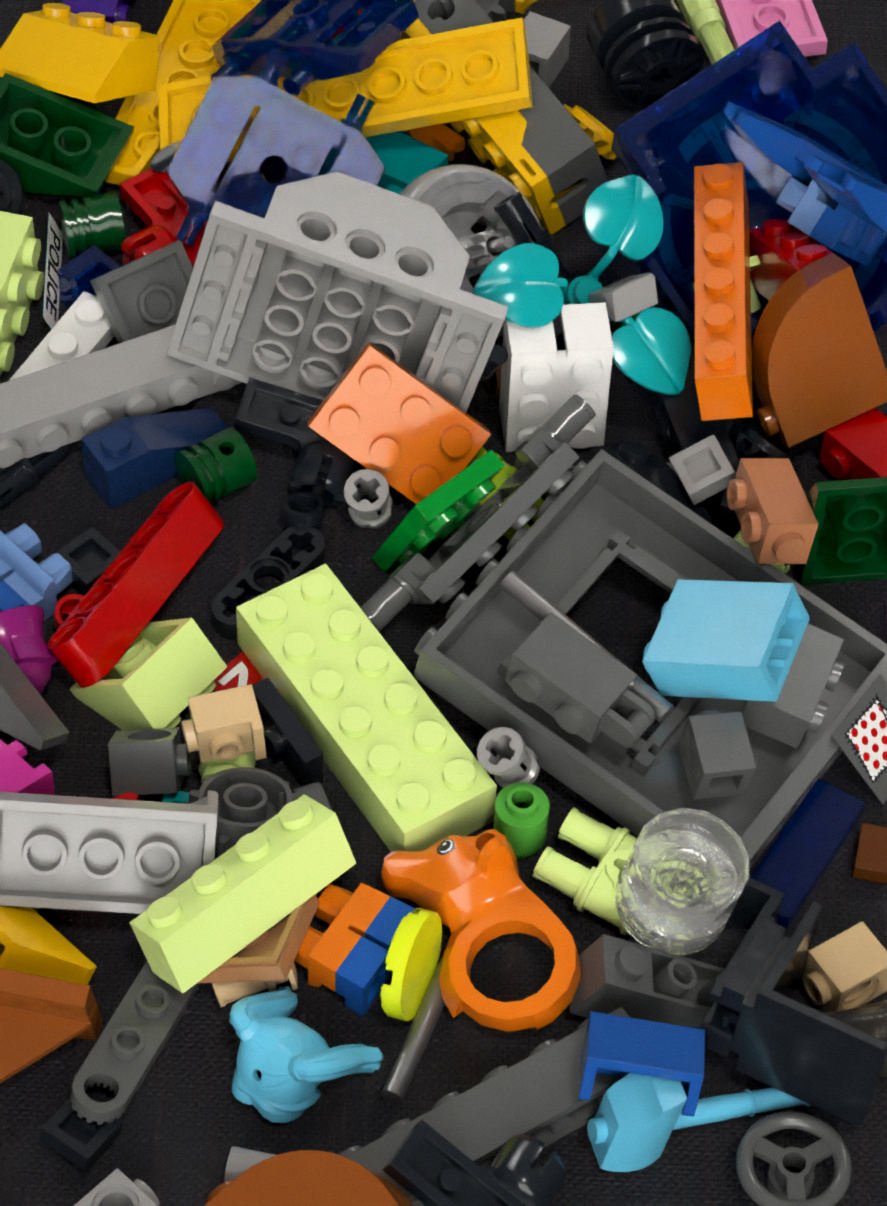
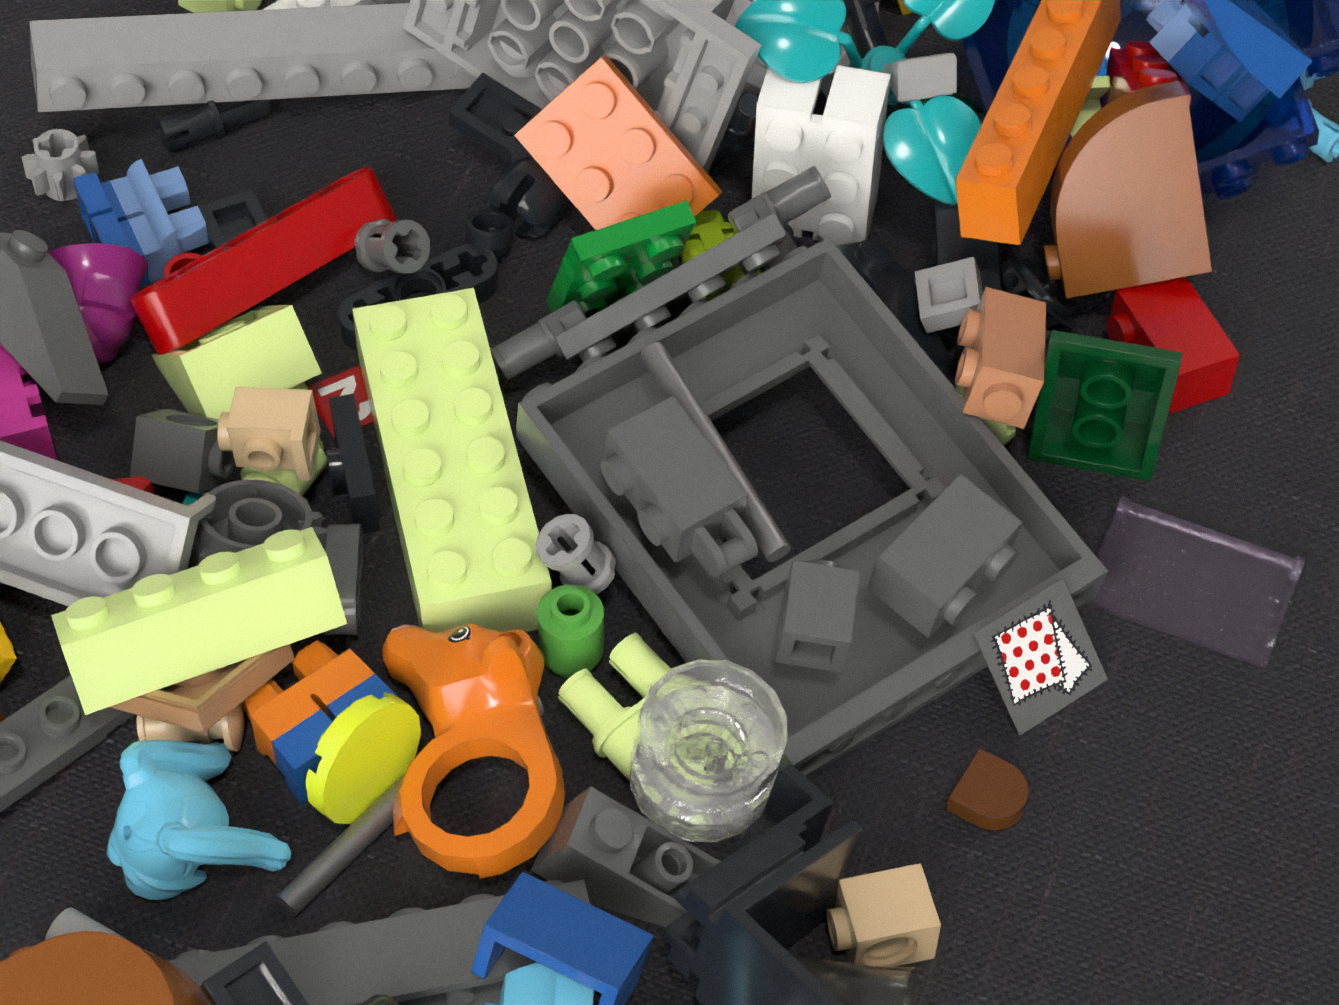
camera: 20 degrees right, 0 degrees up
(141, 450) = (352, 127): dark blue slope -> none
(217, 464) = (414, 160): dark green piece -> none
(236, 544) = (396, 240): none -> dark grey bush
(373, 486) = (550, 234): light grey bush -> none
(726, 640) = (875, 484): medium azure brick -> none
(808, 845) = (902, 758): clear blue tile -> none

